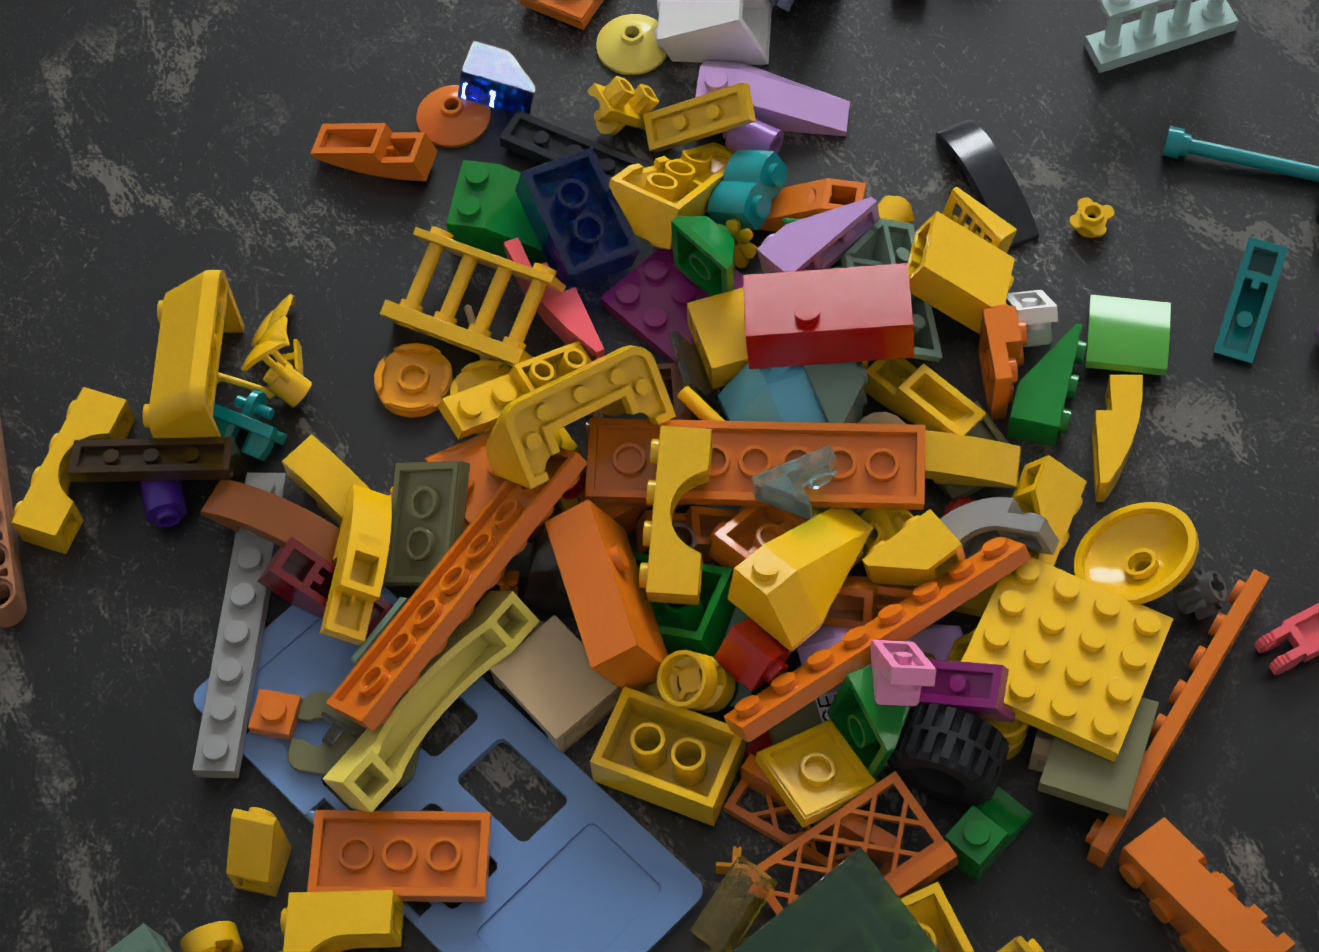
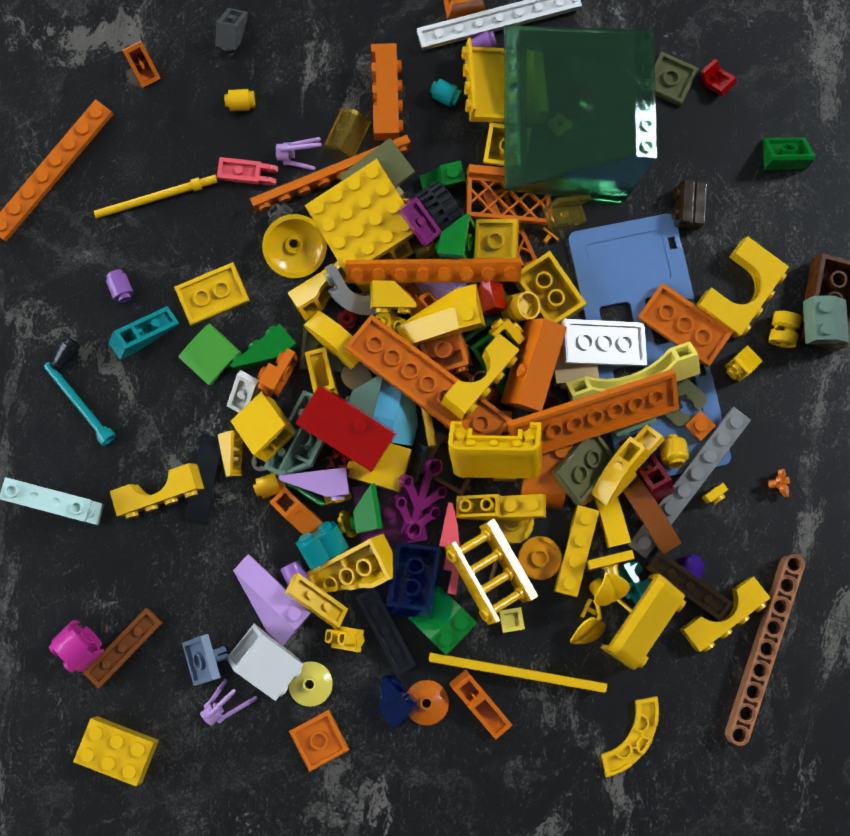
camera: 150 degrees left, 20 degrees up
(85, 712) = (780, 483): none -> orange plant
(115, 241) = (637, 741): none -> yellow tile
(189, 627) = (716, 494): none -> yellow plate
(295, 641) = (674, 451): none -> yellow head
(297, 416) = (610, 562): none -> yellow tile
(340, 217) = (517, 672): none -> yellow tile
(361, 409) = (576, 551): none -> yellow arch
(397, 273) = (511, 620): none -> light yellow plate
(518, 728) = (604, 343): none -> white tile
(633, 284) = (420, 500): none -> magenta plant
(688, 623) = (513, 330): none -> yellow bracket
(785, 484) = (427, 357): clear light blue slope -> none
(899, 672) = (441, 238): bright pink slope -> none
(1011, 134) = (181, 482): none -> yellow arch
(1089, 226) = (181, 425): yellow plate -> none
(1115, 431) = (254, 309): yellow slope -> none
(1201, 422) = (212, 294): none -> yellow tile
(1212, 804) = (348, 131): none -> clear yellow panel
(1279, 704) = (286, 151): none -> lavender plant

